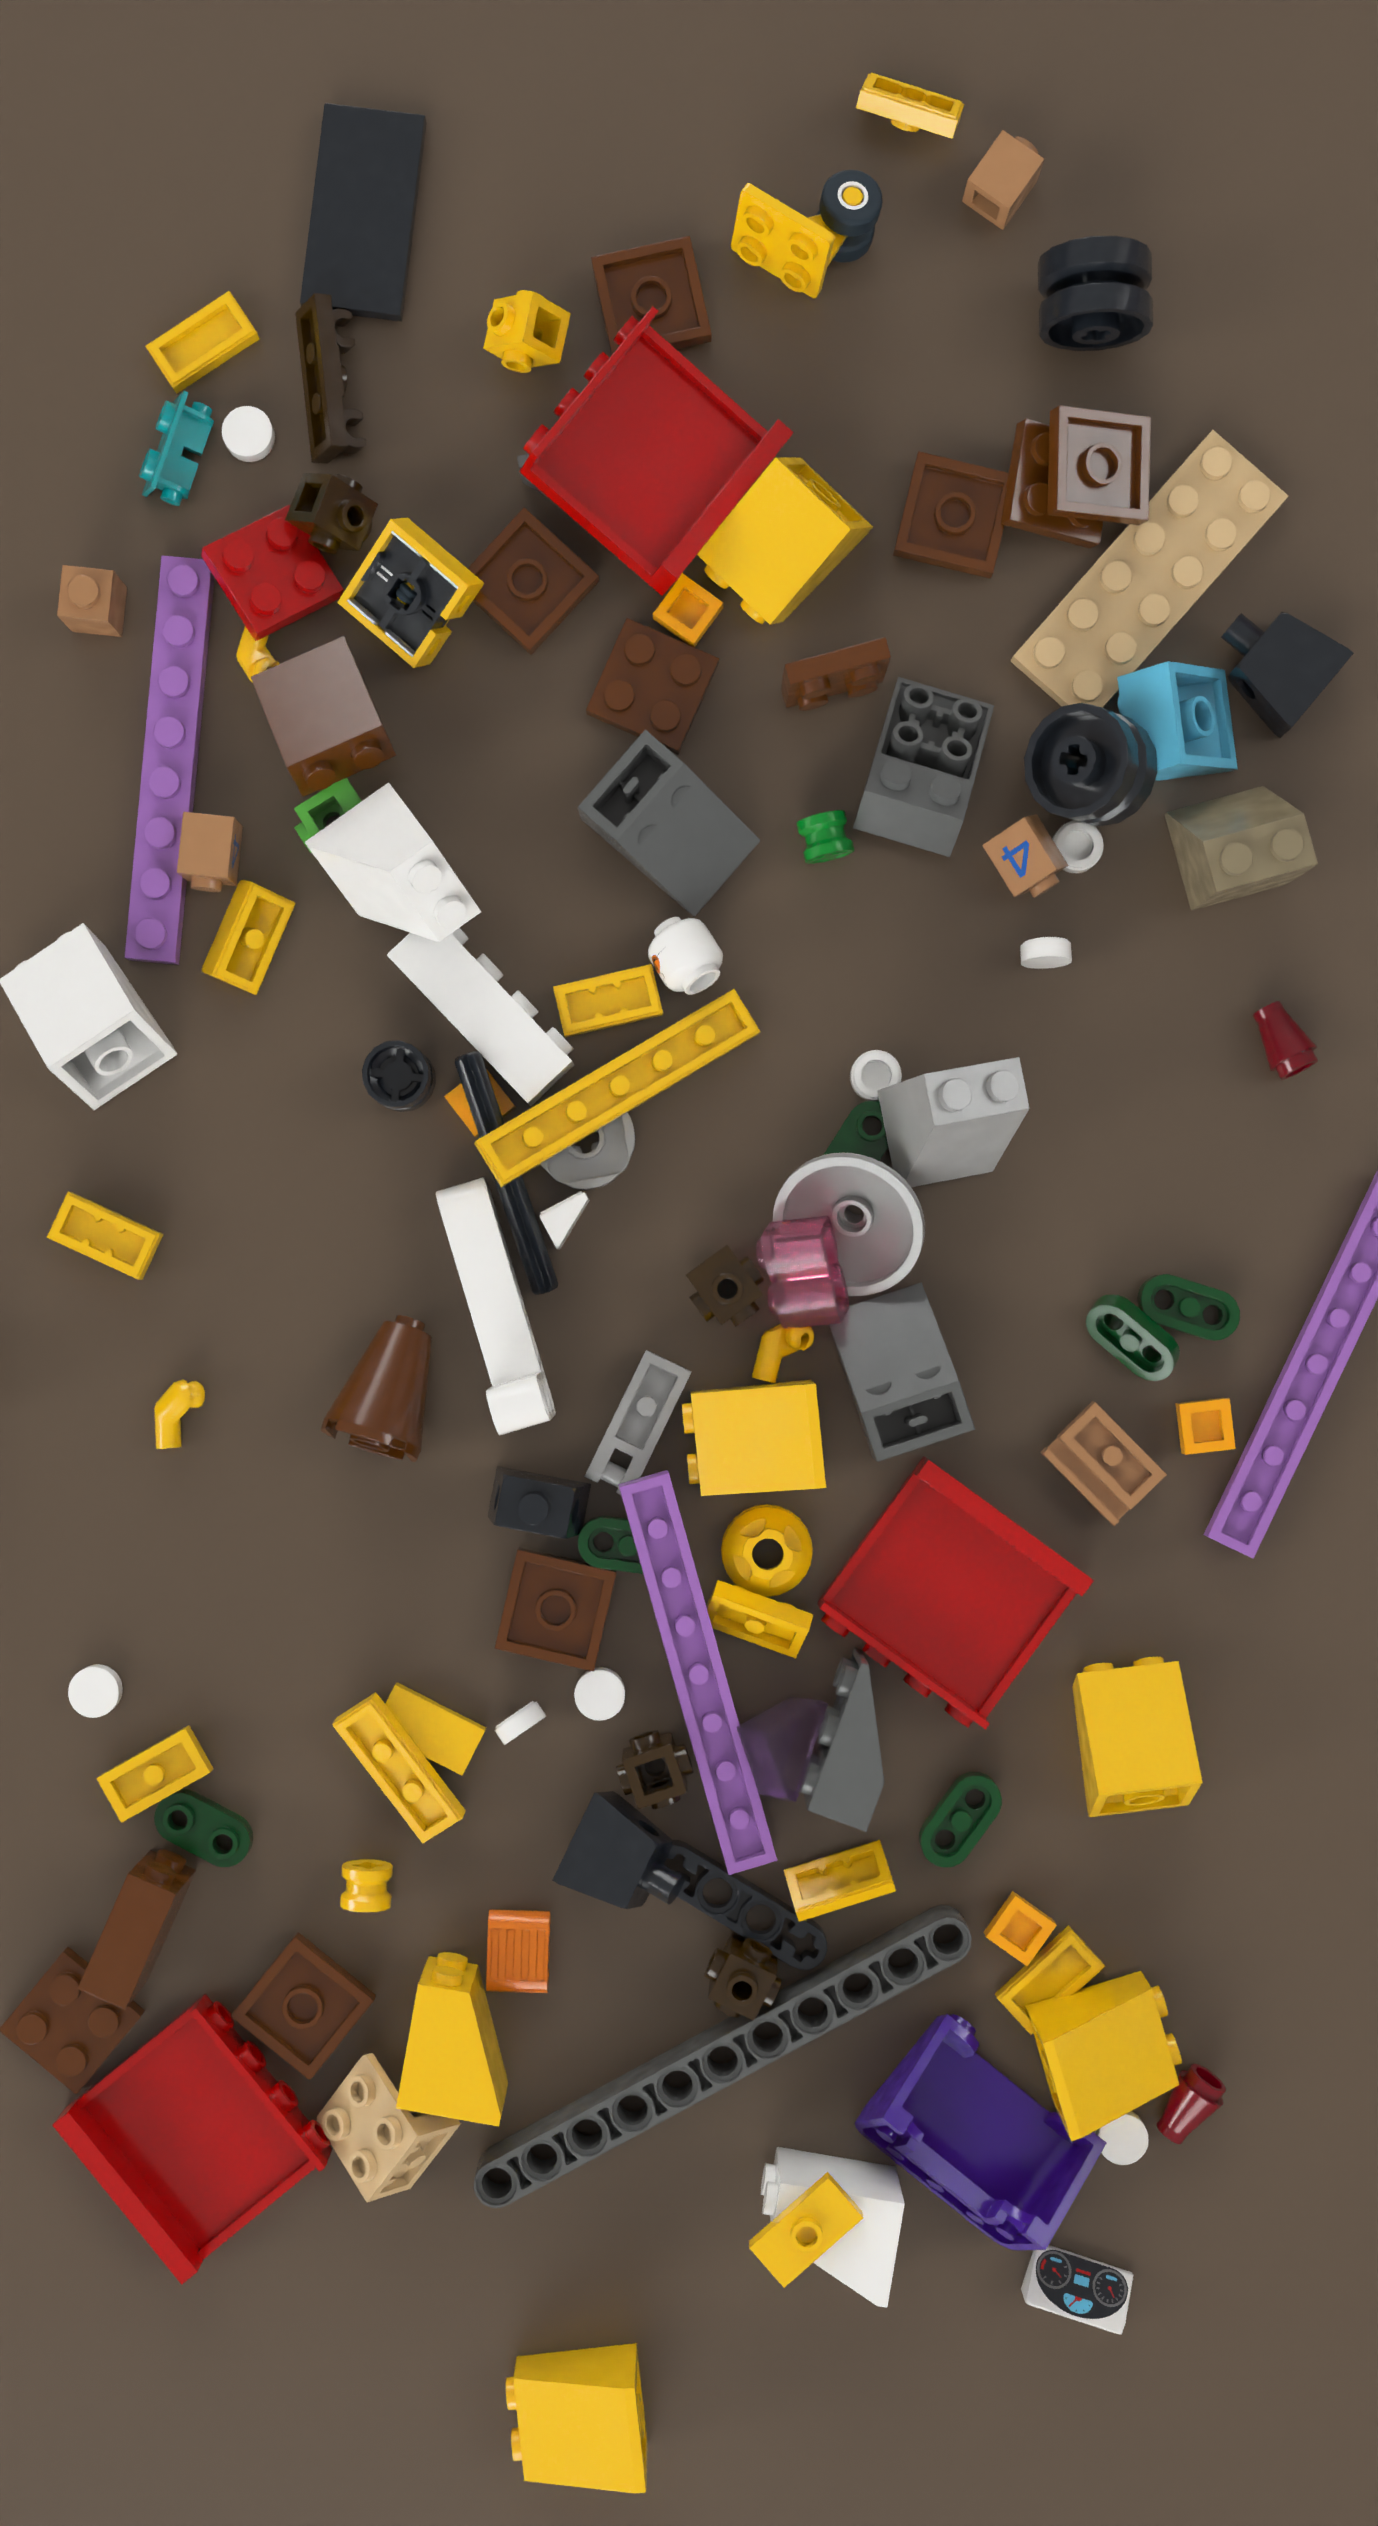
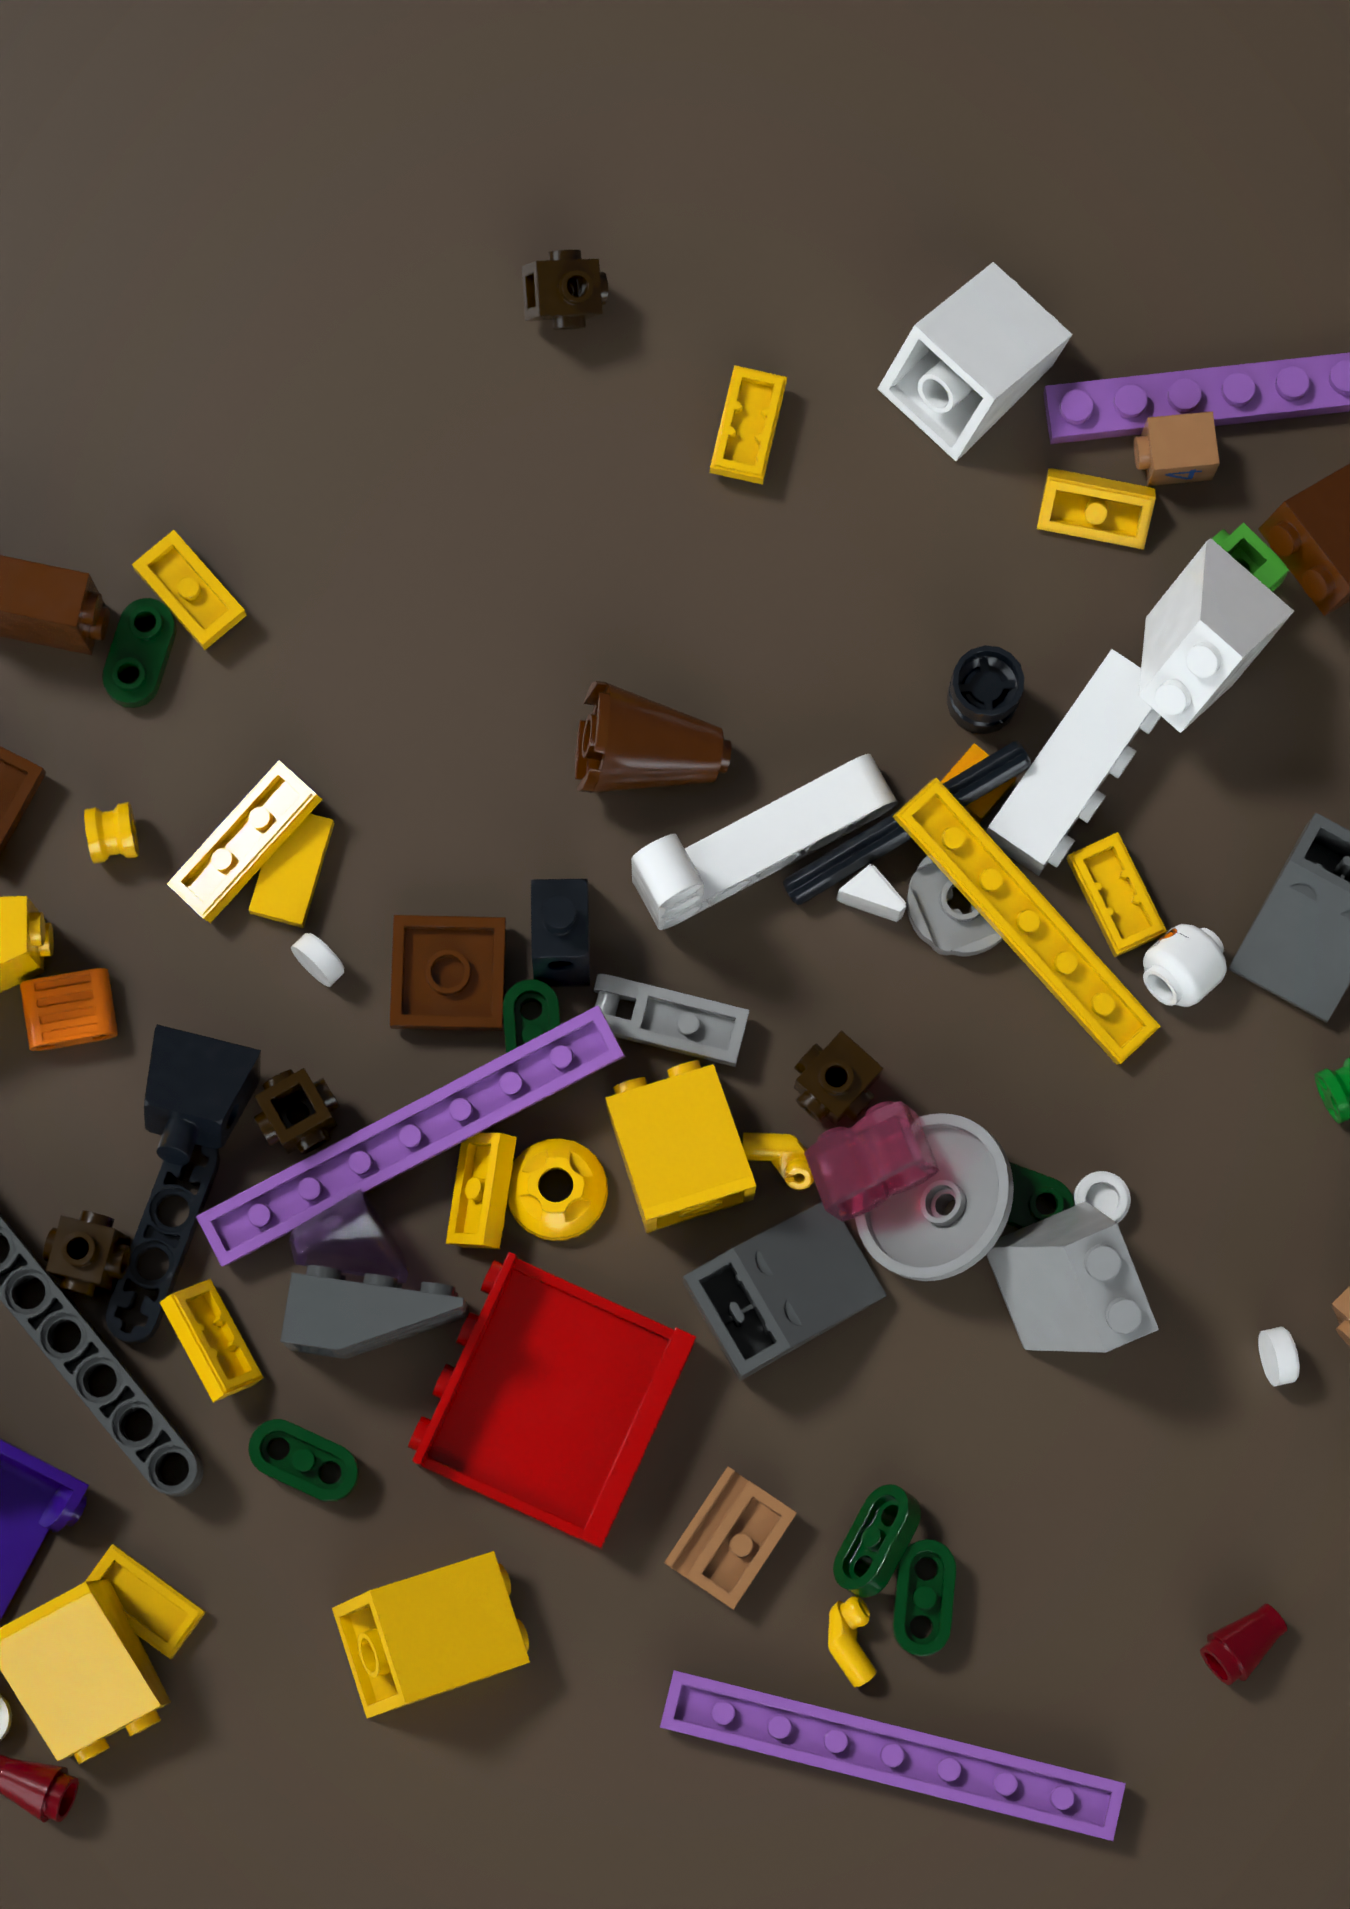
camera: 80 degrees right, 10 degrees down
(95, 1691) = (264, 512): white tile -> none
(171, 1408) = (579, 528): yellow arm -> none
(599, 1694) = (364, 1040): white tile -> none
(1020, 1928) = (195, 1552): light orange plate -> none
(1205, 1426) = (796, 1644): light orange plate -> none
(1211, 1385) = (843, 1643): none -> yellow arm

